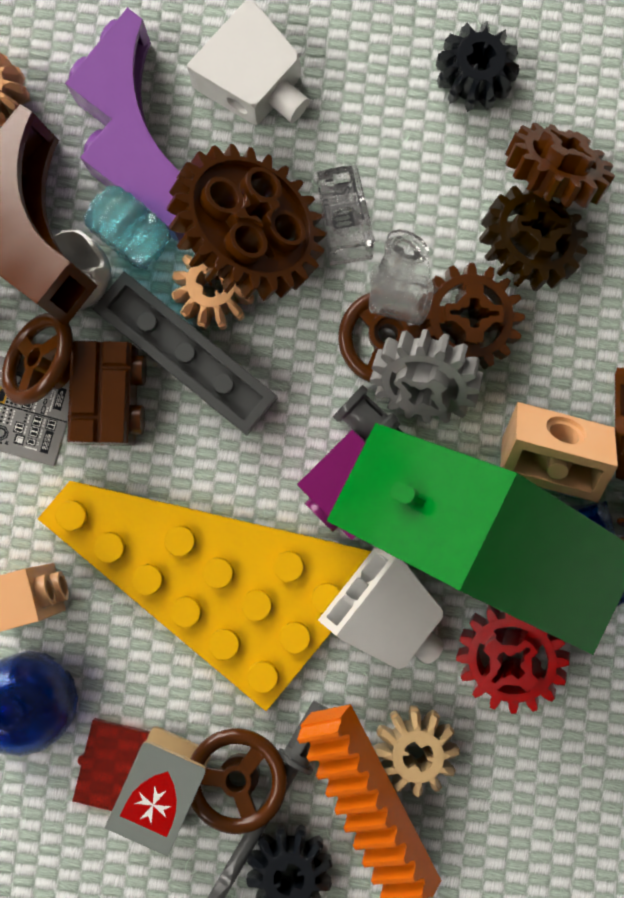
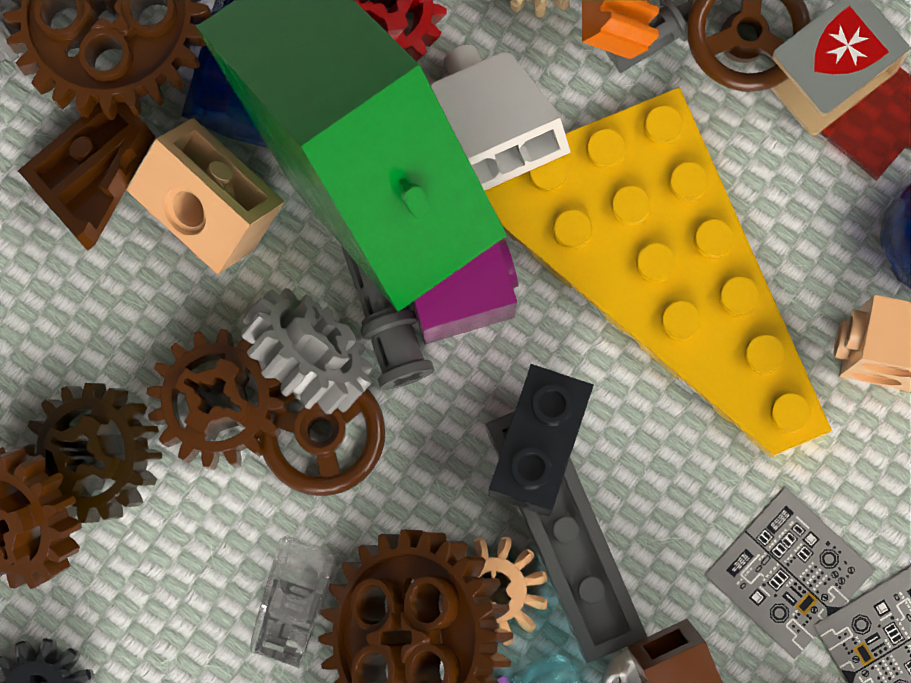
camera: 150 degrees left, 5 degrees down
(44, 364) = (733, 600): reddish brown piece -> none
(105, 393) = (683, 531): reddish brown brick -> none
(229, 394) = (540, 440): none -> black brick
(402, 279) = (273, 478): clear piece -> none

